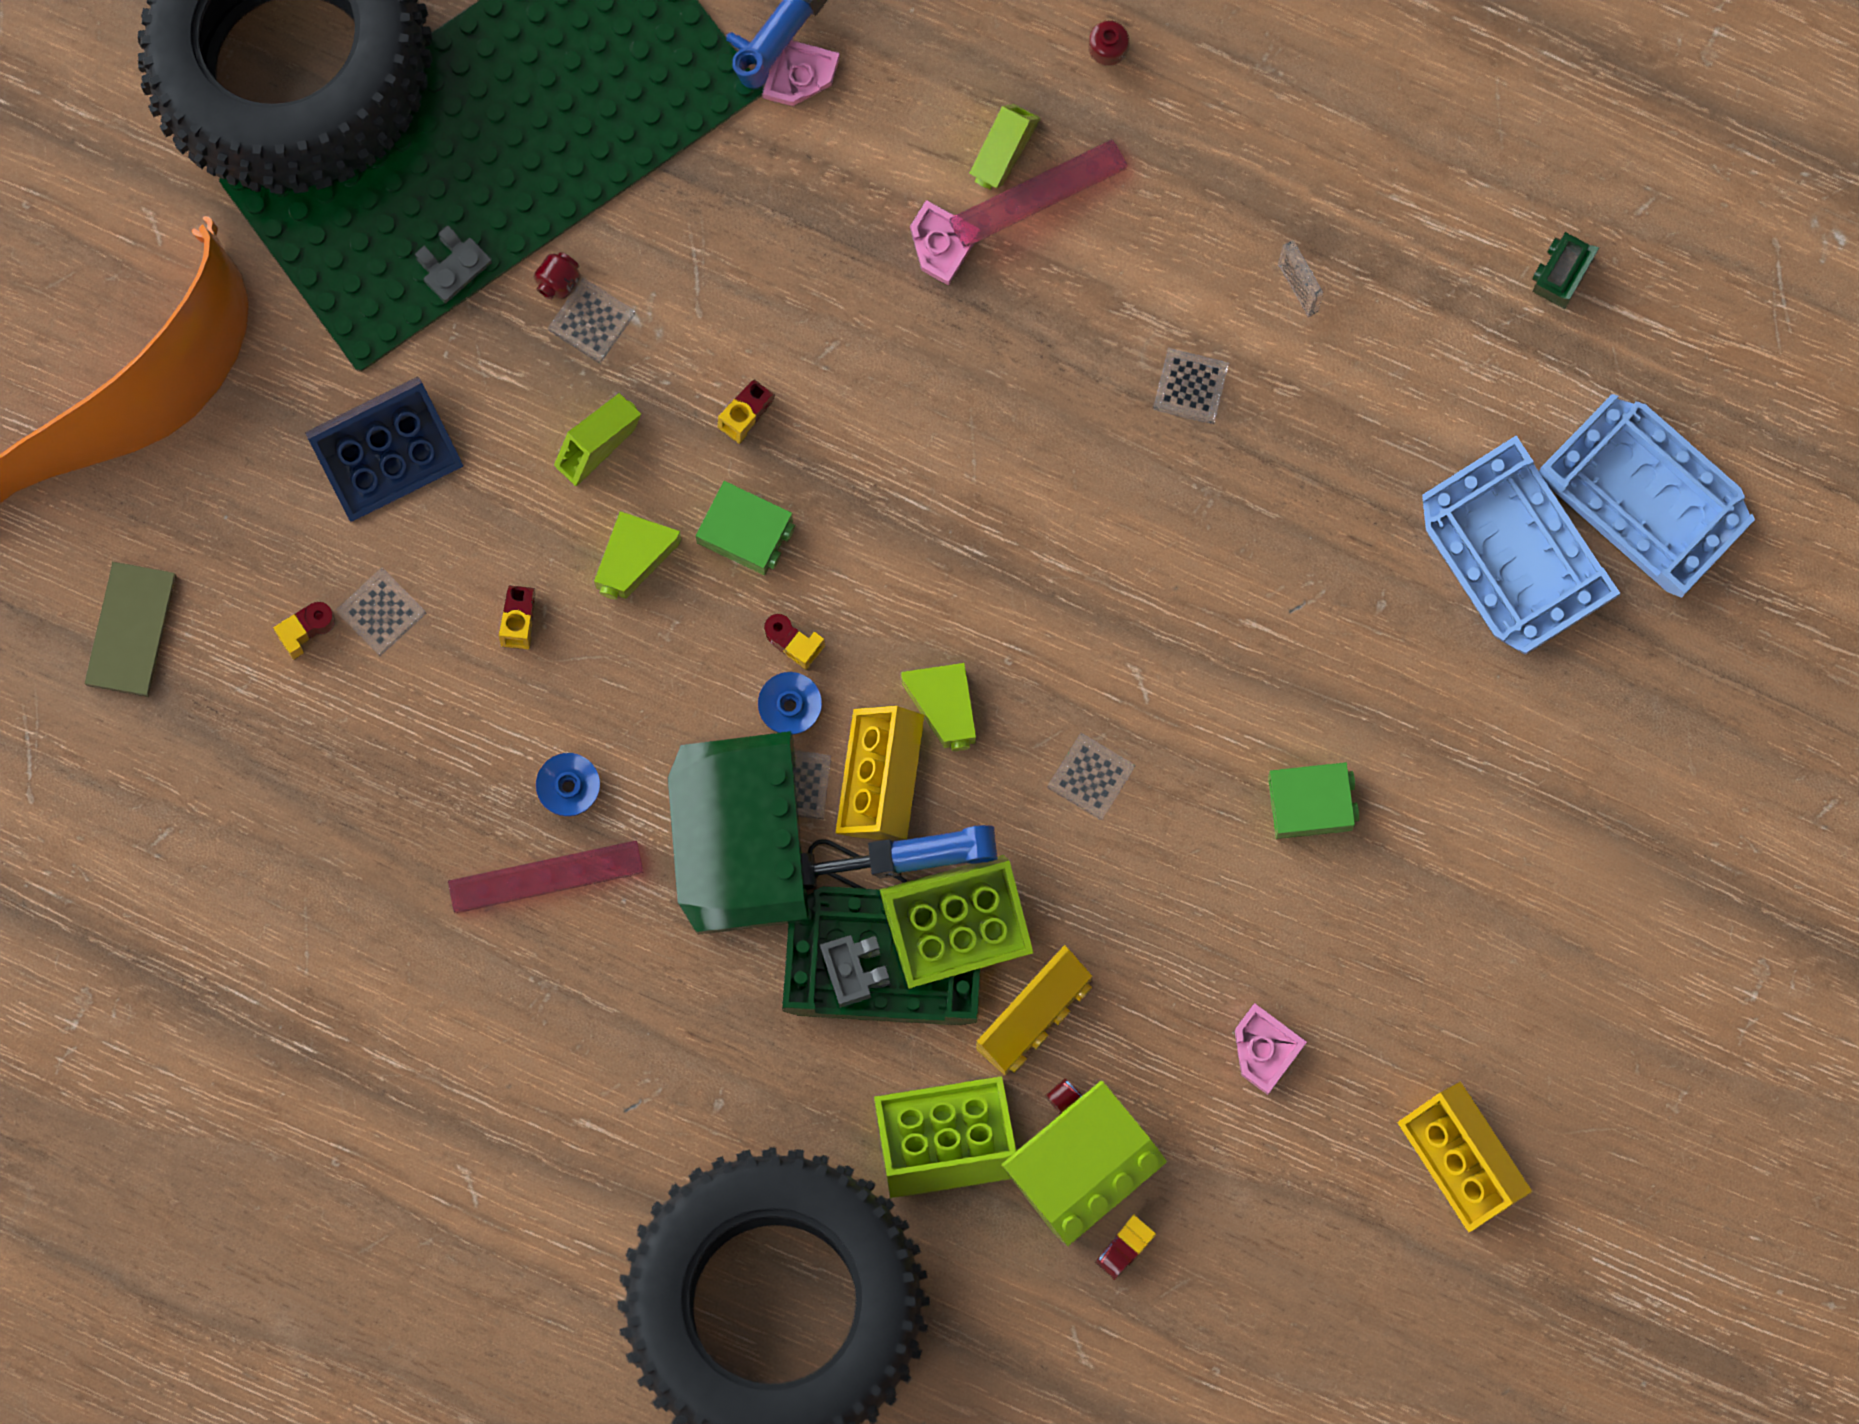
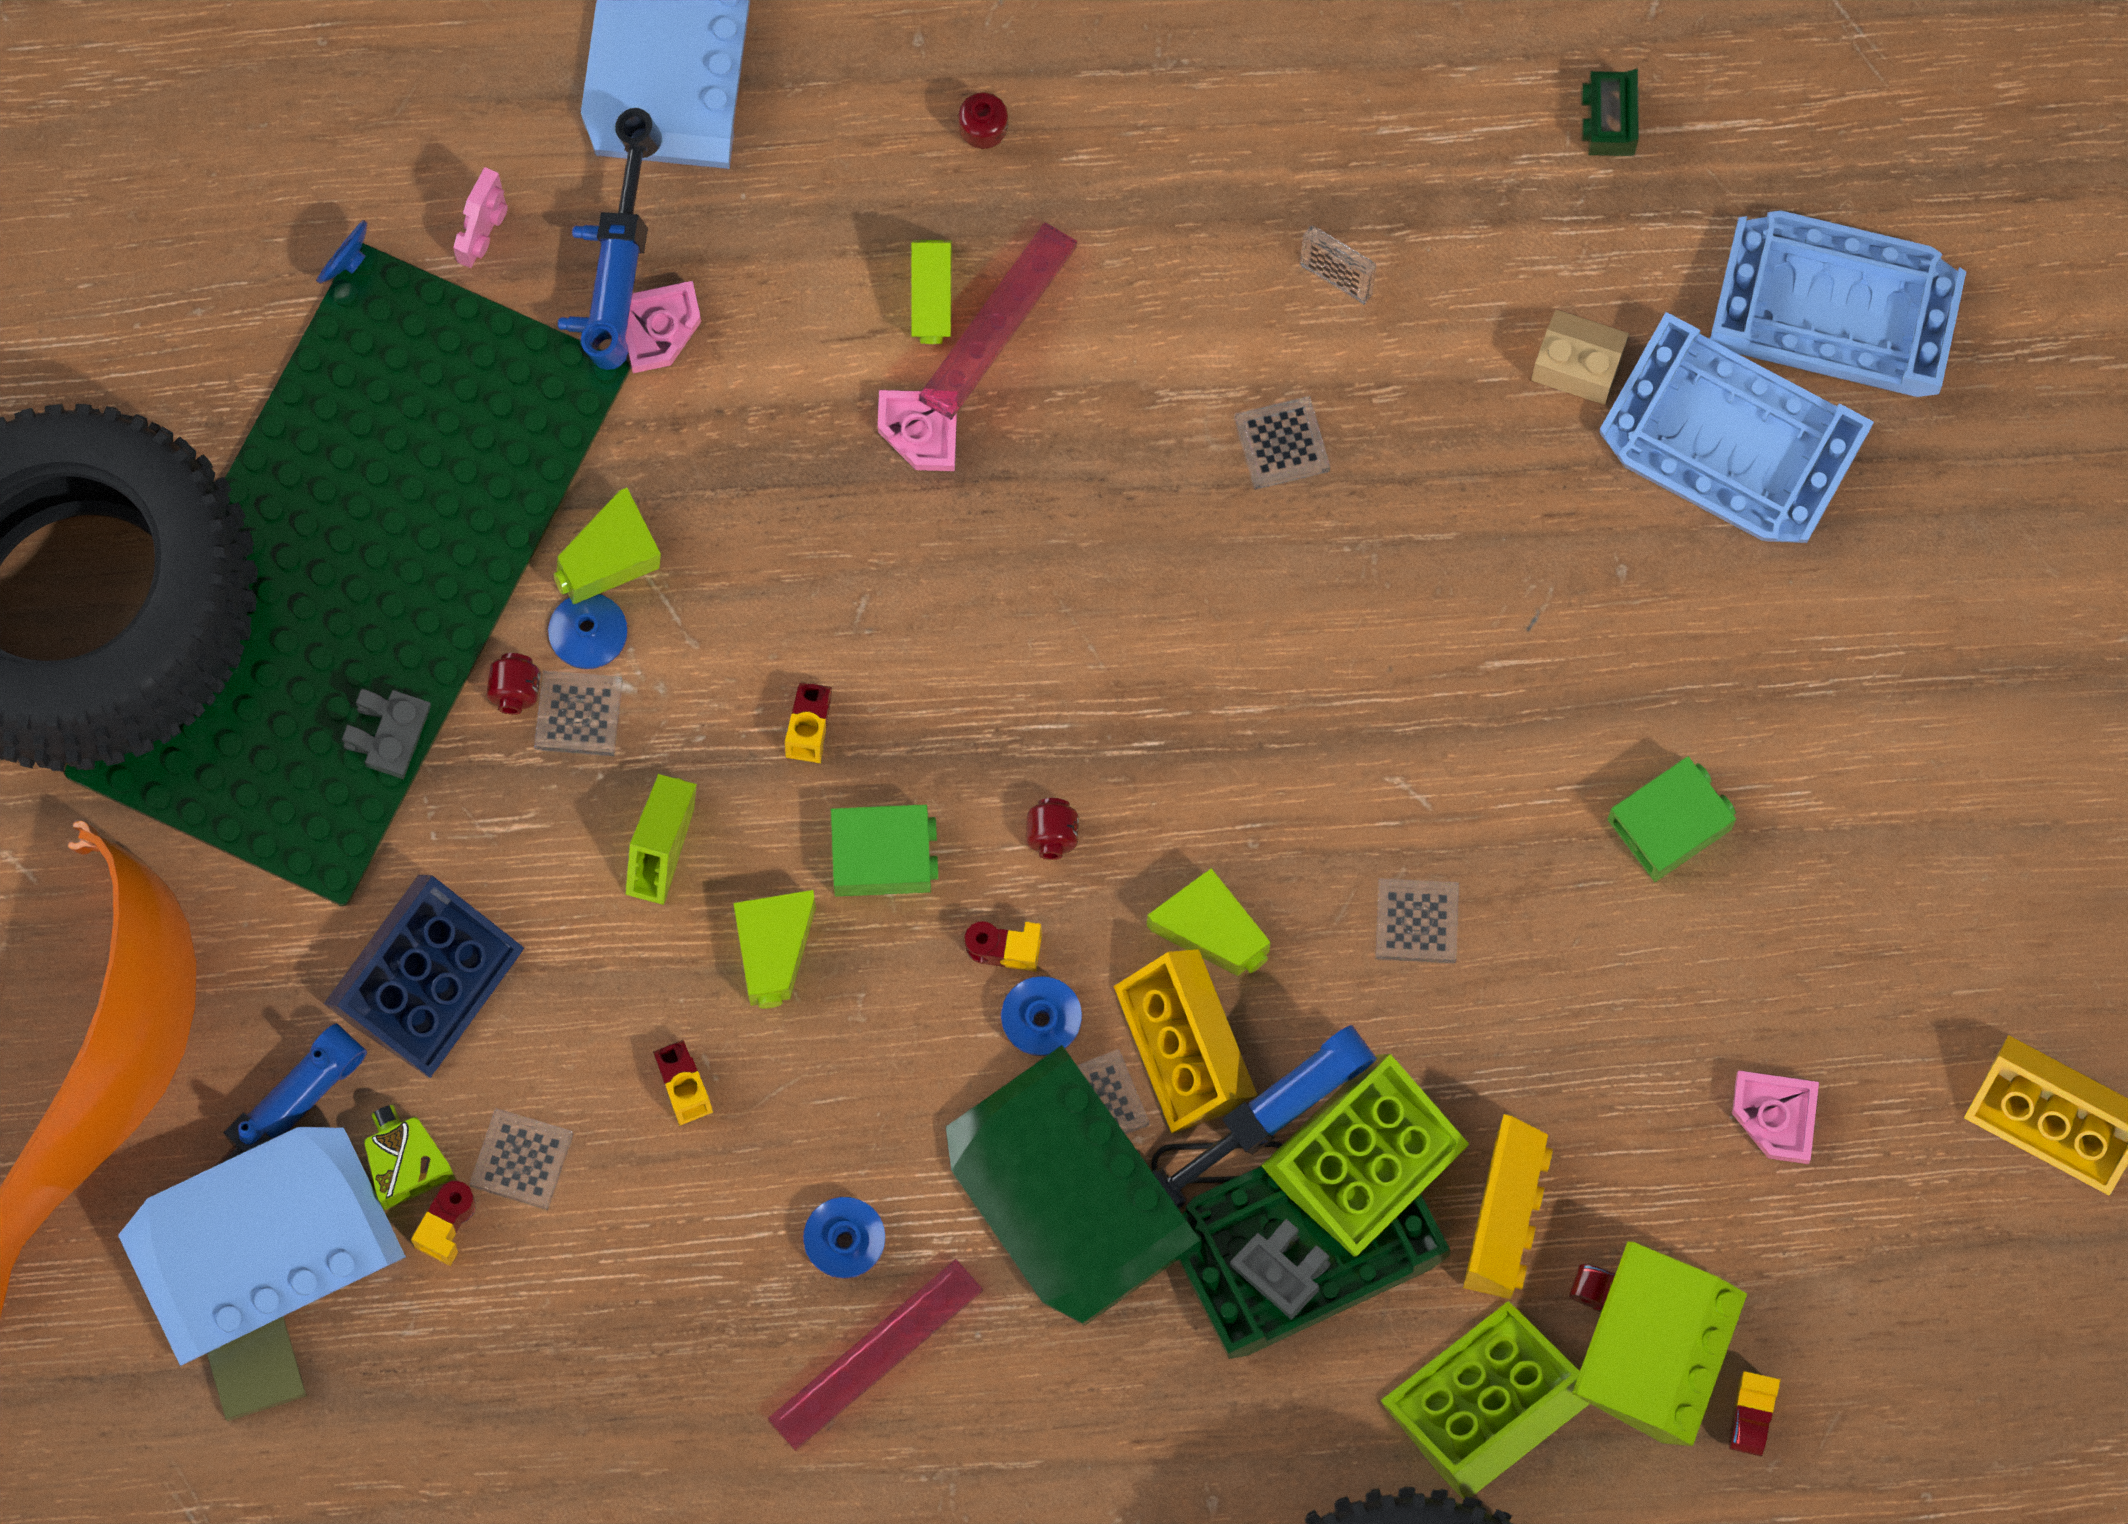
camera: 30 degrees left, 5 degrees down
(170, 571) = (258, 1238): none -> light blue slope
(208, 499) = (330, 1059): none -> blue piece
(299, 569) = (403, 1159): none -> lime torso
(633, 279) = (593, 647): none -> blue dish
(672, 216) = (607, 551): none -> lime slope
(872, 575) = (1052, 828): none -> dark red head
(1439, 434) = (1579, 356): none -> tan slope

